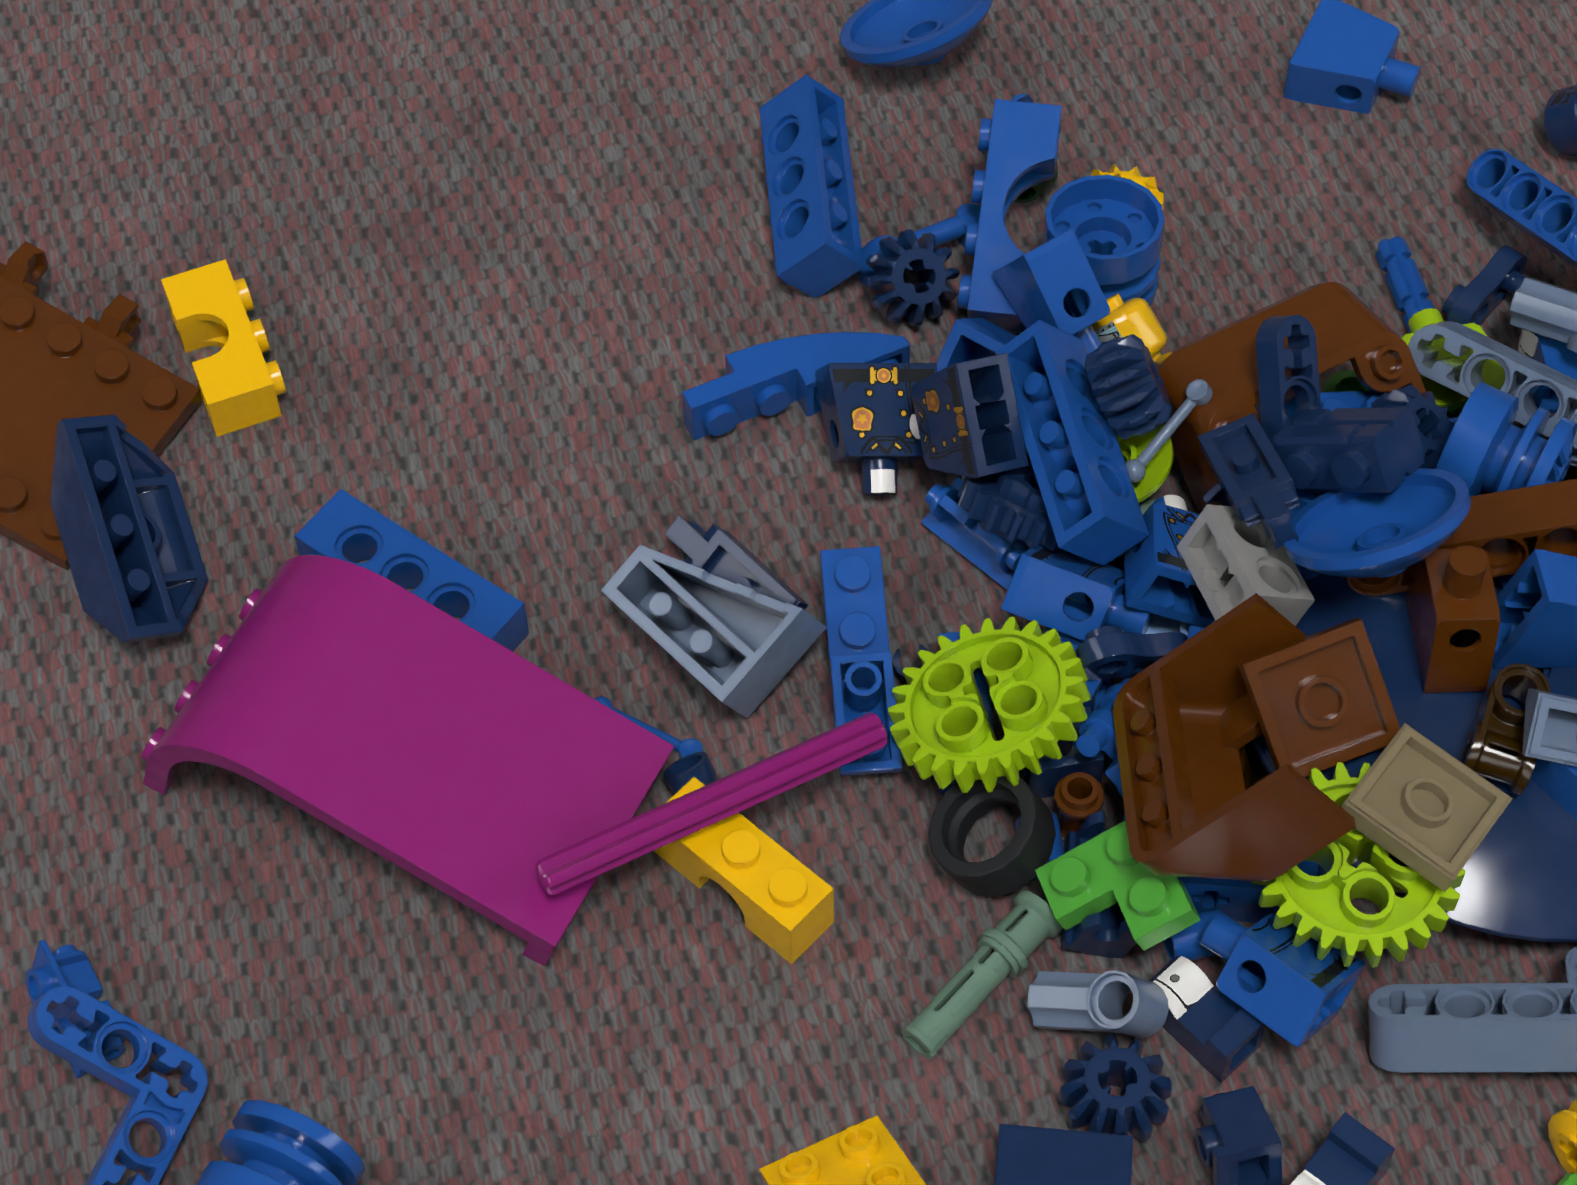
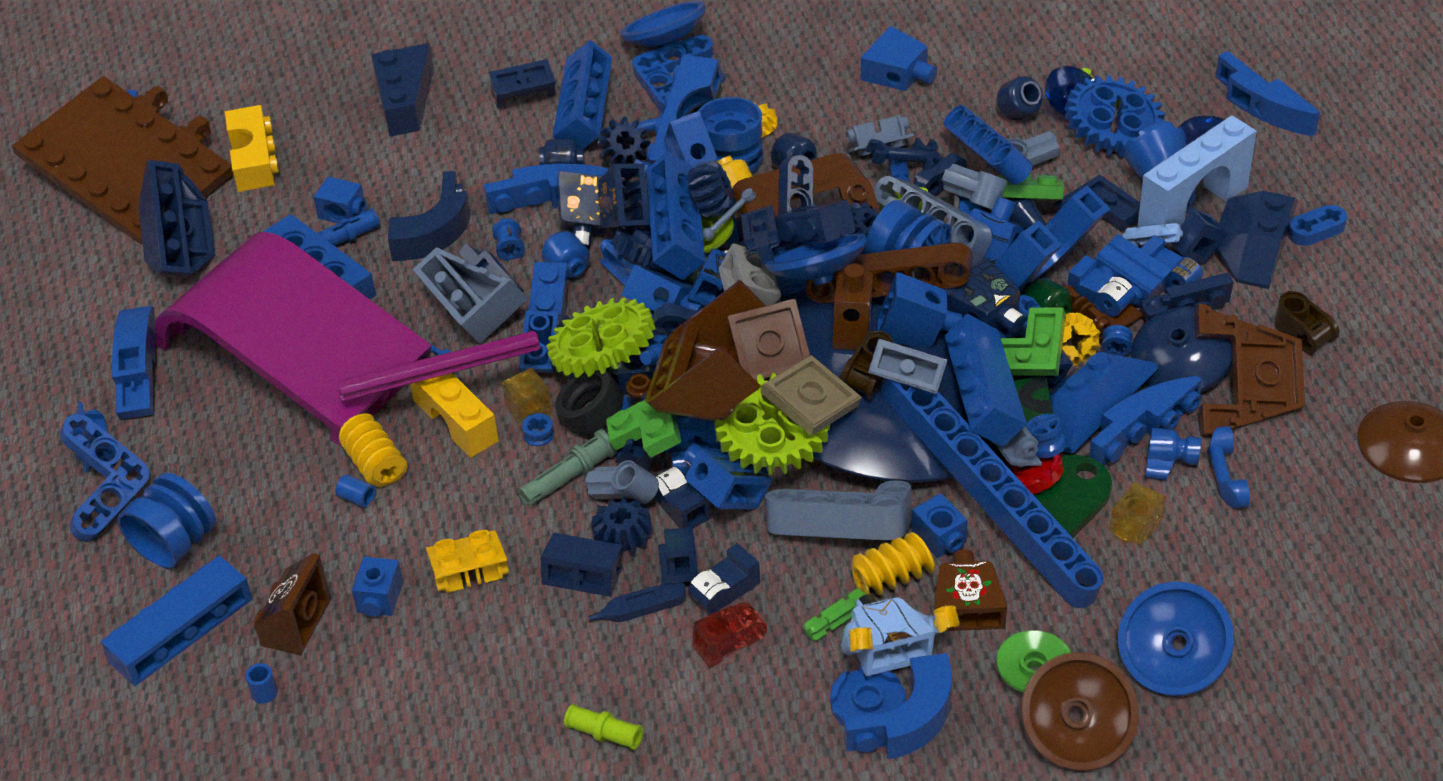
camera: 10 degrees right, 10 degrees down
(119, 833) = (133, 360): none -> blue slope
(419, 446) = (339, 200): none -> blue brick
(450, 500) = (351, 228): none -> blue pin
(471, 192) = (403, 85): none -> dark blue wedge
(602, 1065) = (355, 490): none -> blue hinge
(610, 490) = (439, 227): none -> dark blue arch
(613, 983) = (372, 450): none -> yellow piece
(690, 162) = (521, 80): none -> dark blue hinge
(748, 496) = (515, 244): none -> blue bush
(802, 311) = (560, 152): none -> dark blue head
(864, 516) = (566, 248): none -> blue head
(873, 835) = (526, 395): none -> clear yellow brick
(903, 876) = (541, 422): none -> blue bush
(929, 110) = (649, 70): none -> blue beam
(1217, 270) = (791, 145): none -> dark blue head
(1338, 227) = (891, 133): none -> sand blue hinge
(1435, 245) = (918, 153): none -> dark blue bar

